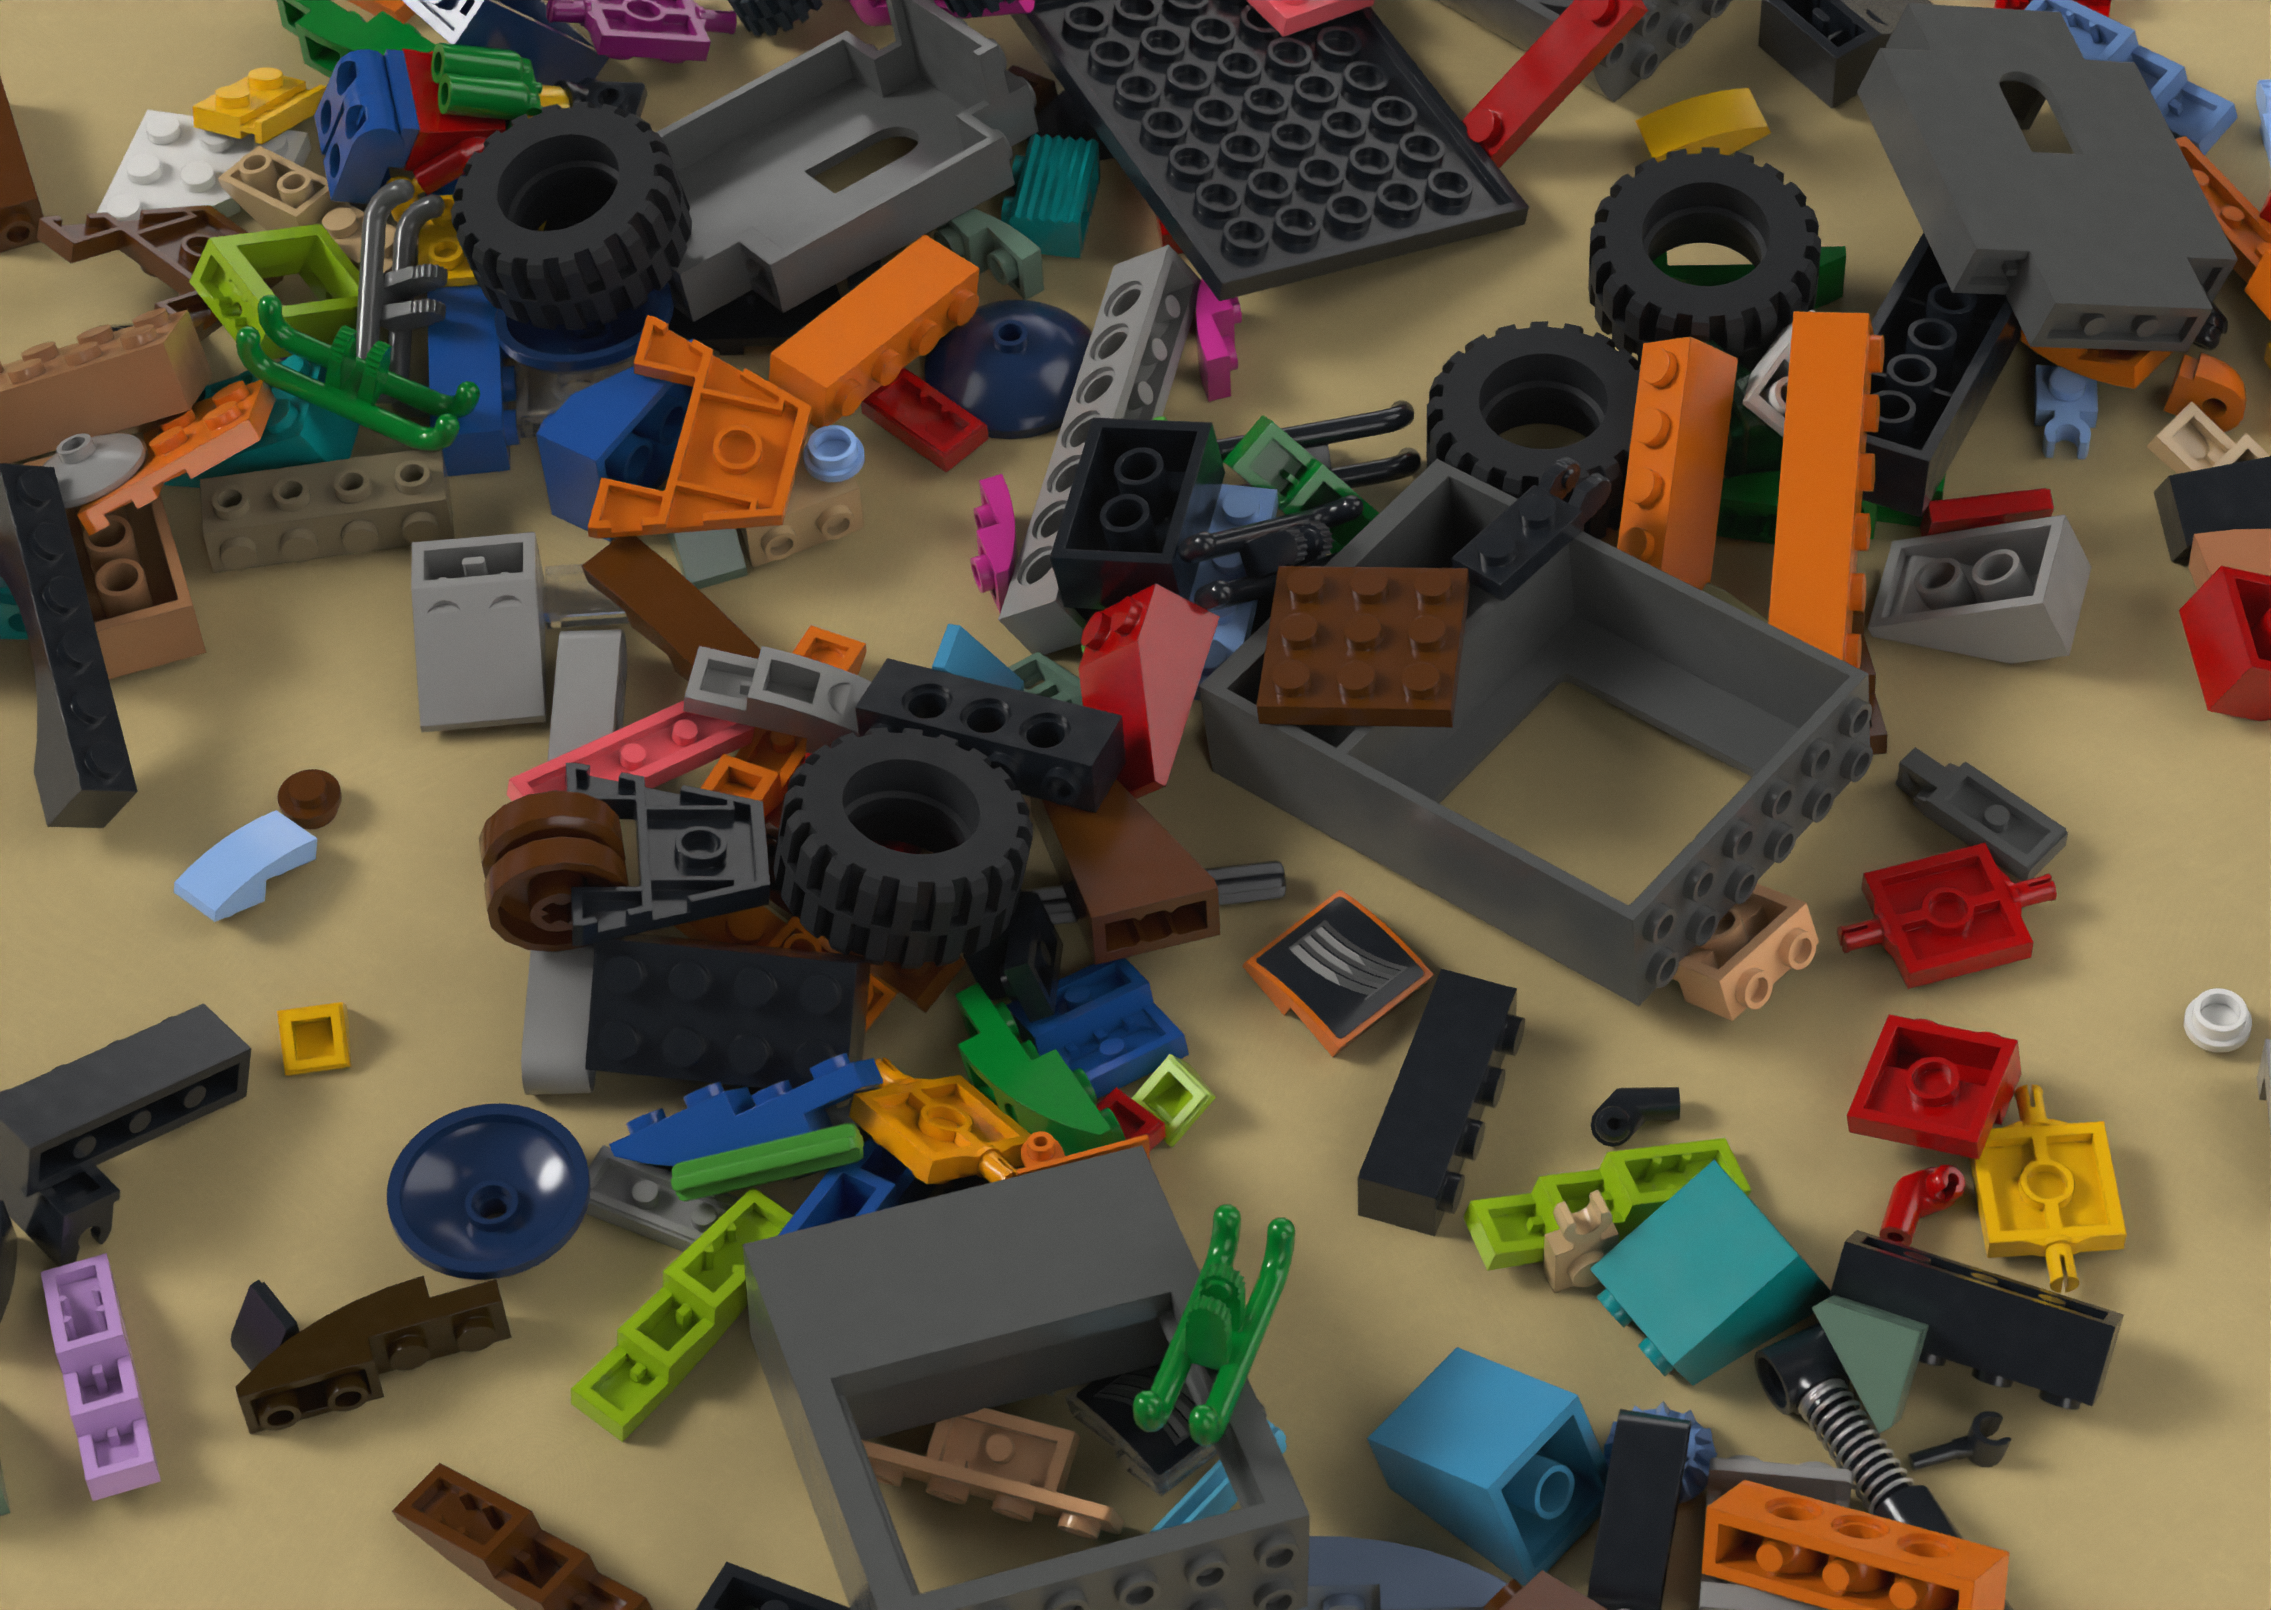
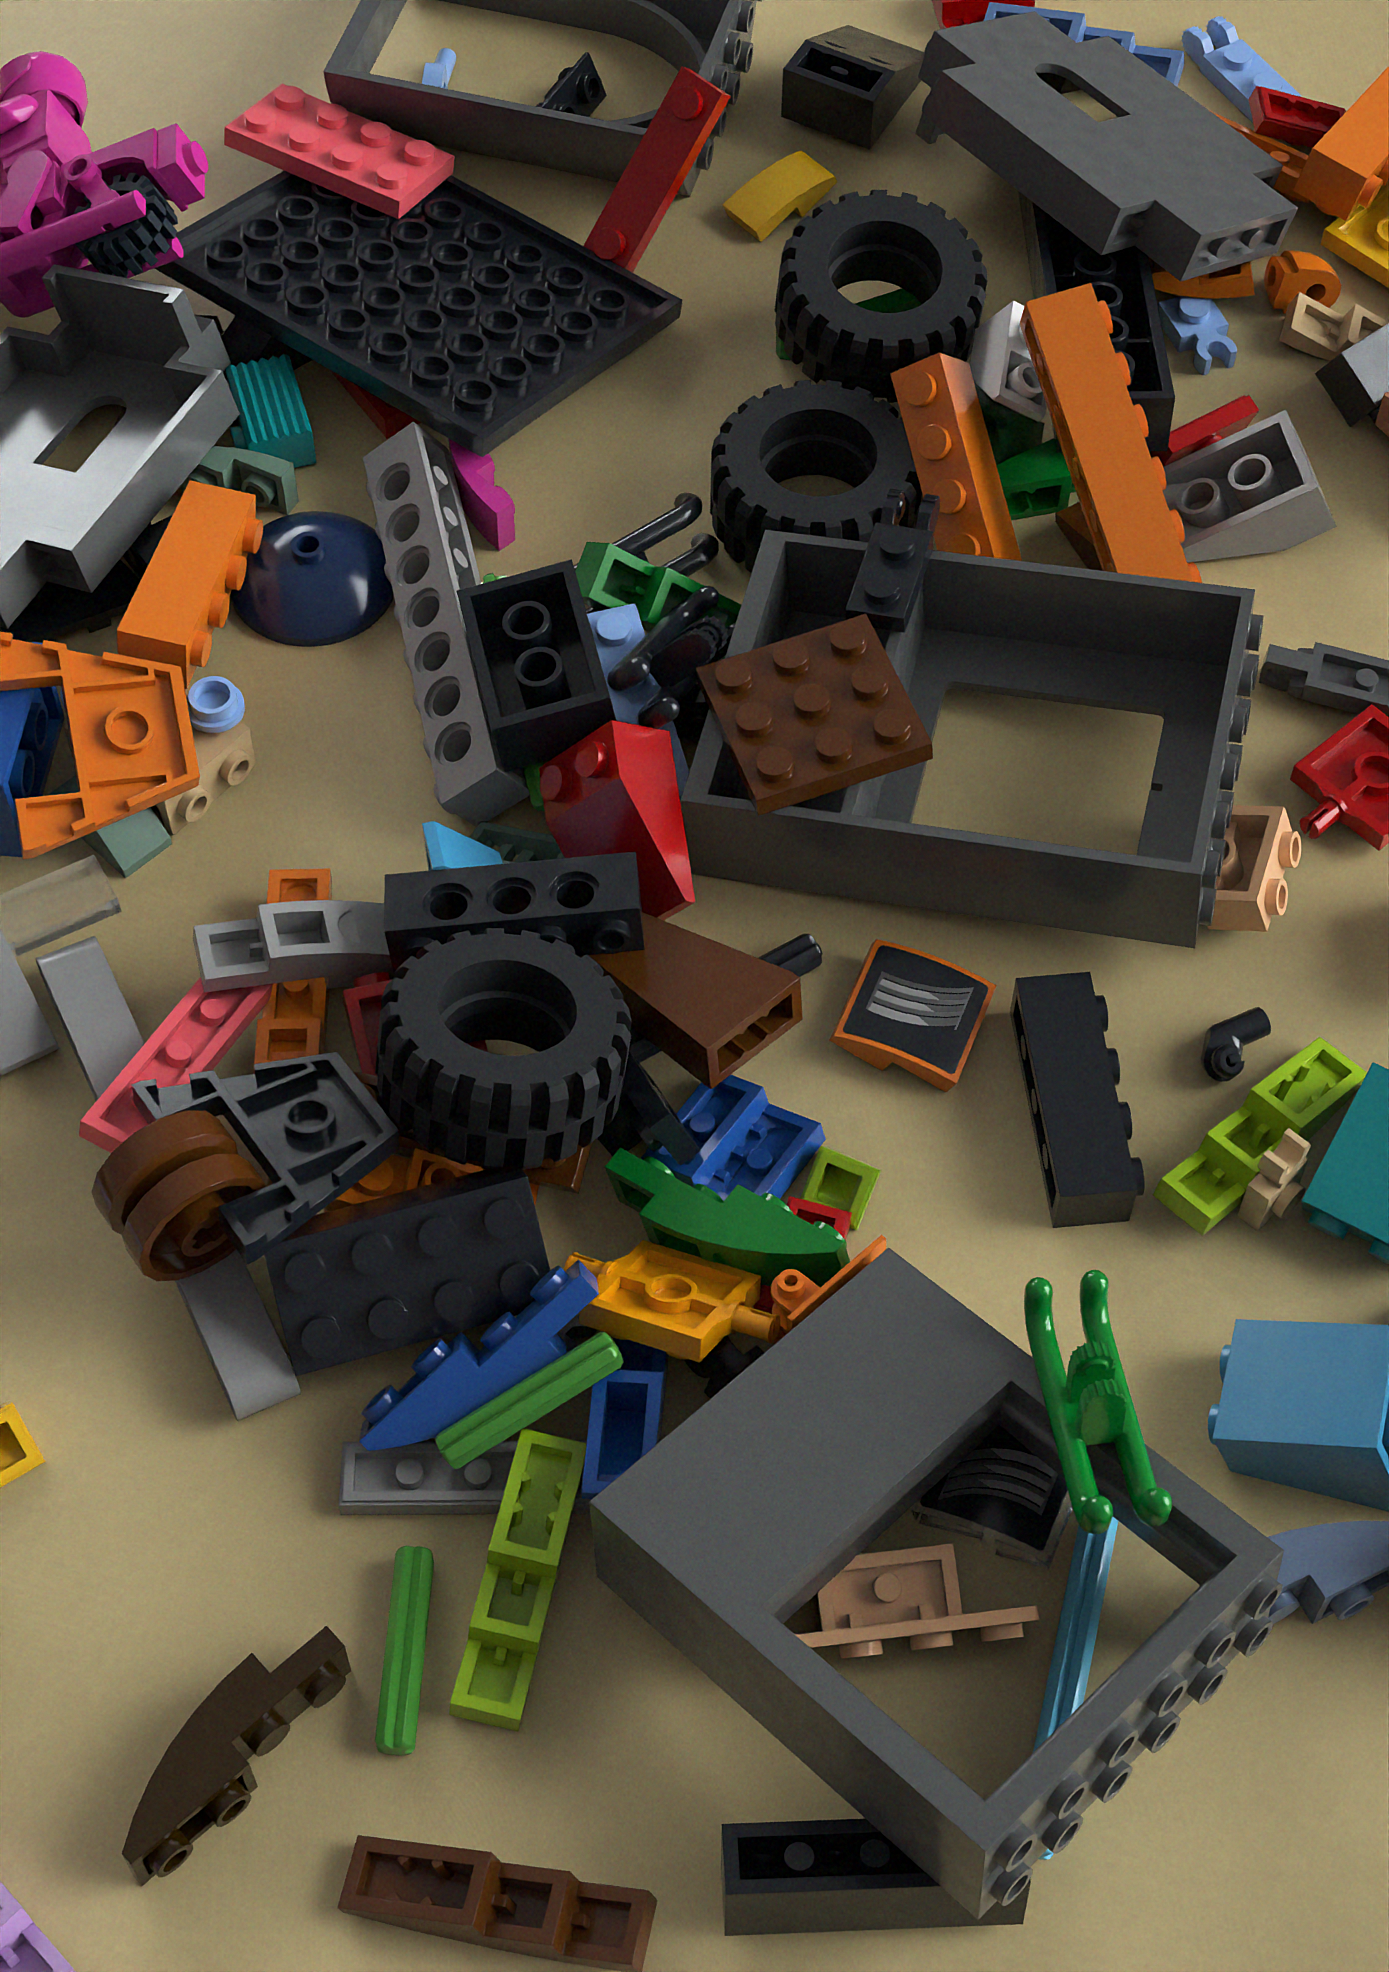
camera: 30 degrees left, 5 degrees up
(261, 1325) = (109, 1776): black slope -> none
(483, 1165) = (257, 1500): dark blue dish -> none
(561, 1335) = (404, 1651): none -> bright green axle
(664, 604) = (128, 901): reddish brown slope -> none
(925, 420) = (267, 649): red plate -> none
(995, 539) = (401, 743): dark pink slope -> none

